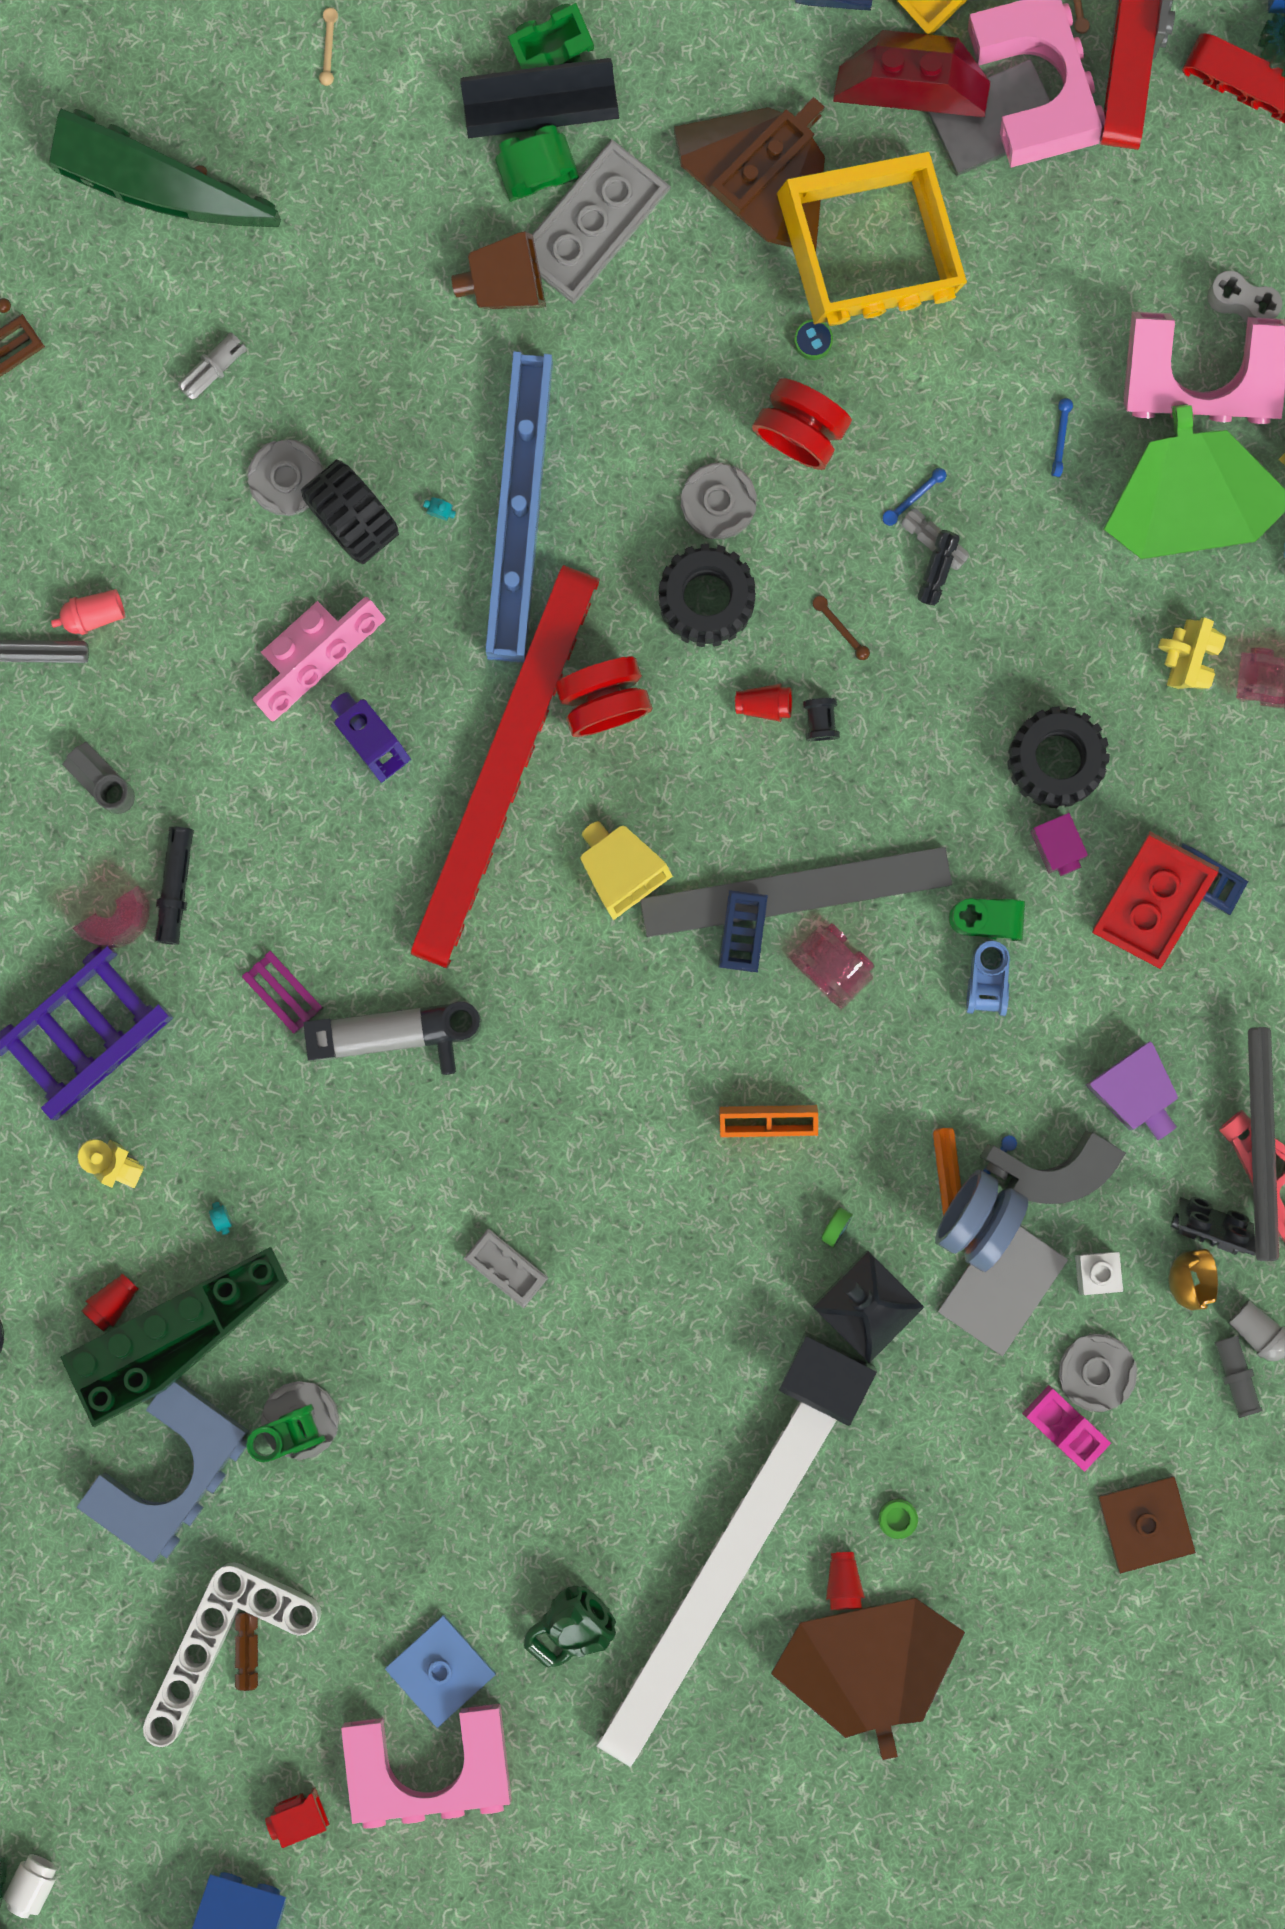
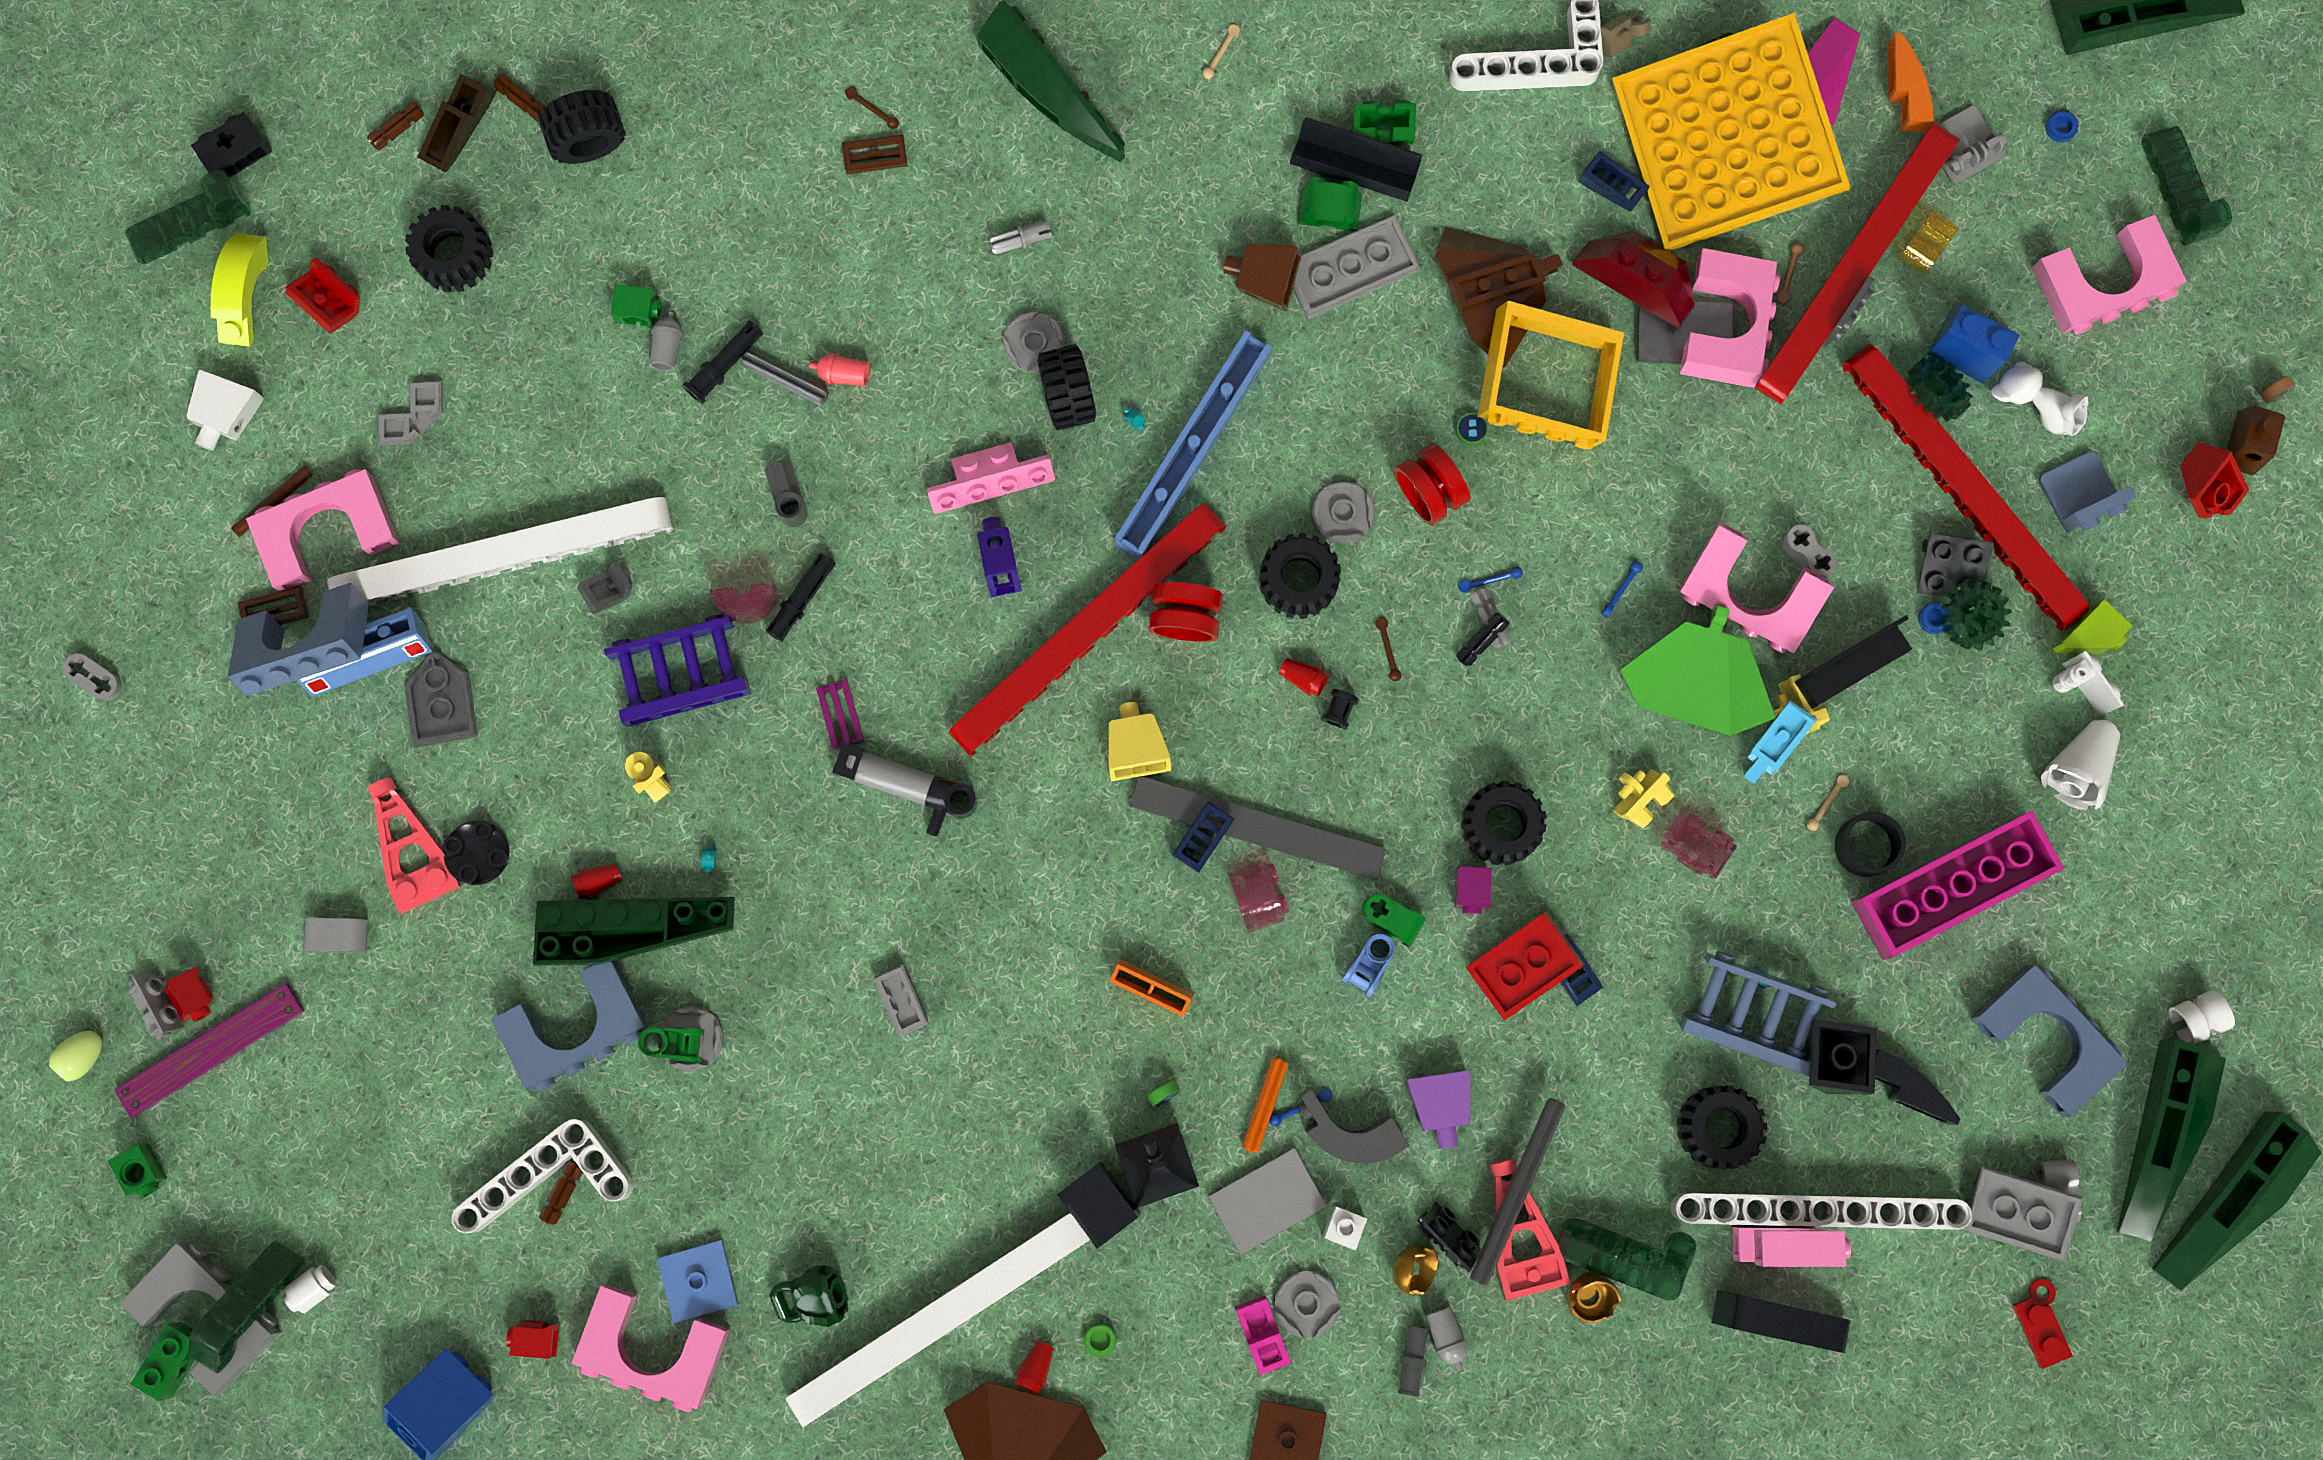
camera: 20 degrees right, 5 degrees down
(981, 1220) = (1274, 1142): sand blue wheel -> none

